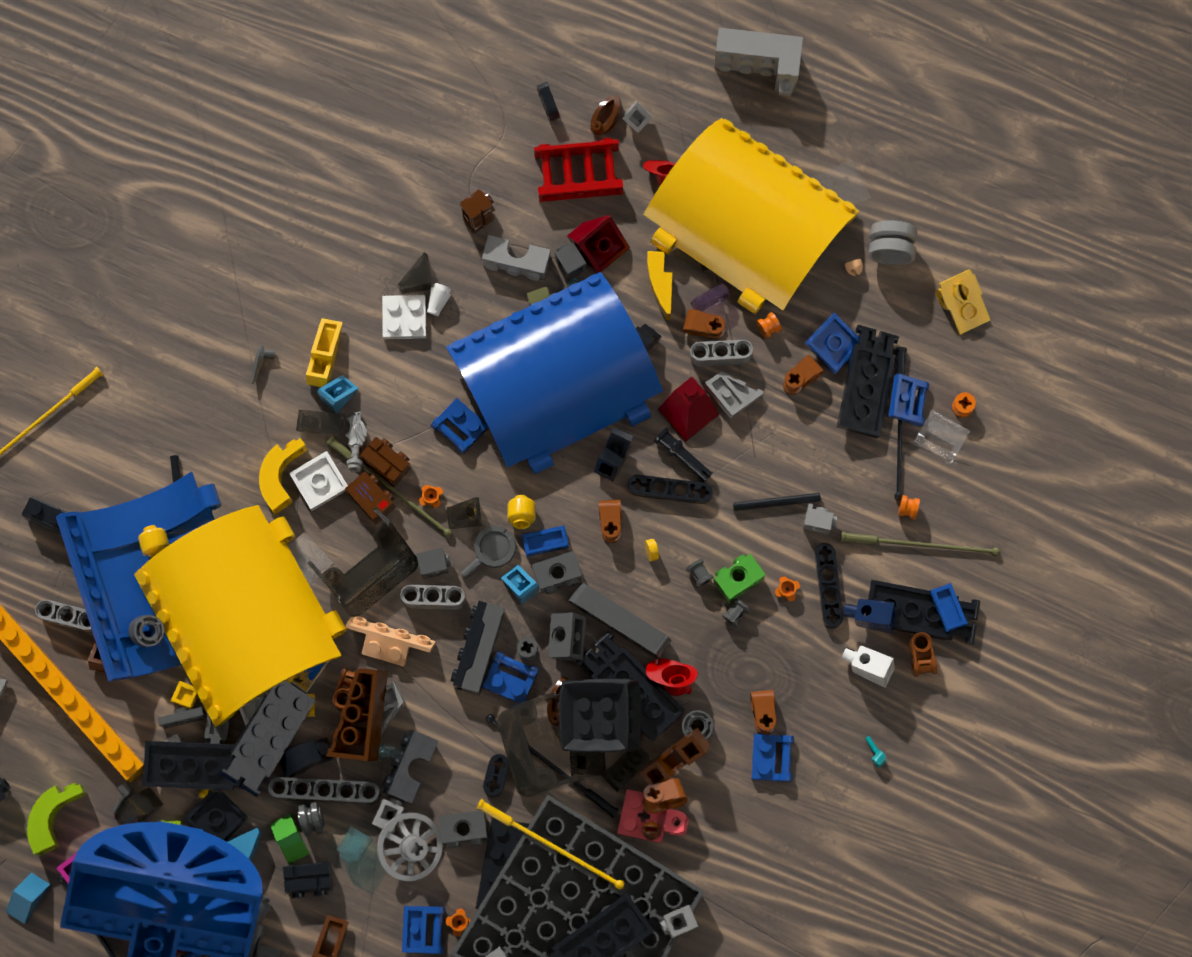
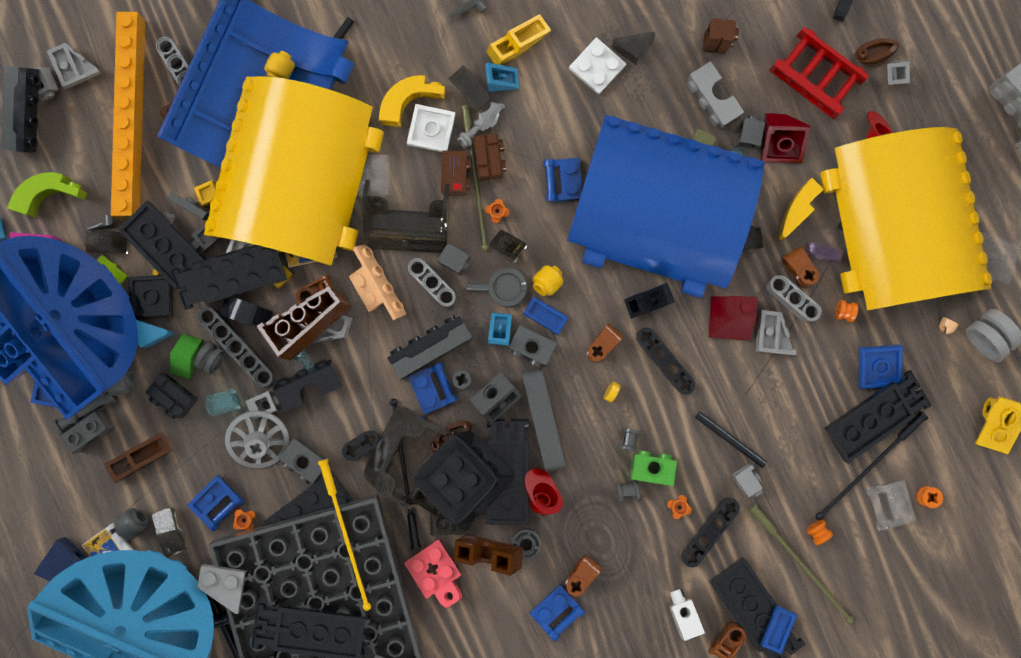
camera: 45 degrees right, 10 degrees up
(136, 631) = (216, 134): dark grey wheel -> none
(438, 298) = (634, 74): white cone -> none
(650, 834) = (429, 582): reddish brown hinge -> none
(665, 795) = (460, 573): dark orange piece -> none
(676, 449) = (696, 336): black pin -> none
(804, 373) = (836, 368): dark orange piece -> none
(881, 616) = (726, 594): dark blue torso -> none
(903, 399) = (894, 456): blue plate -> none

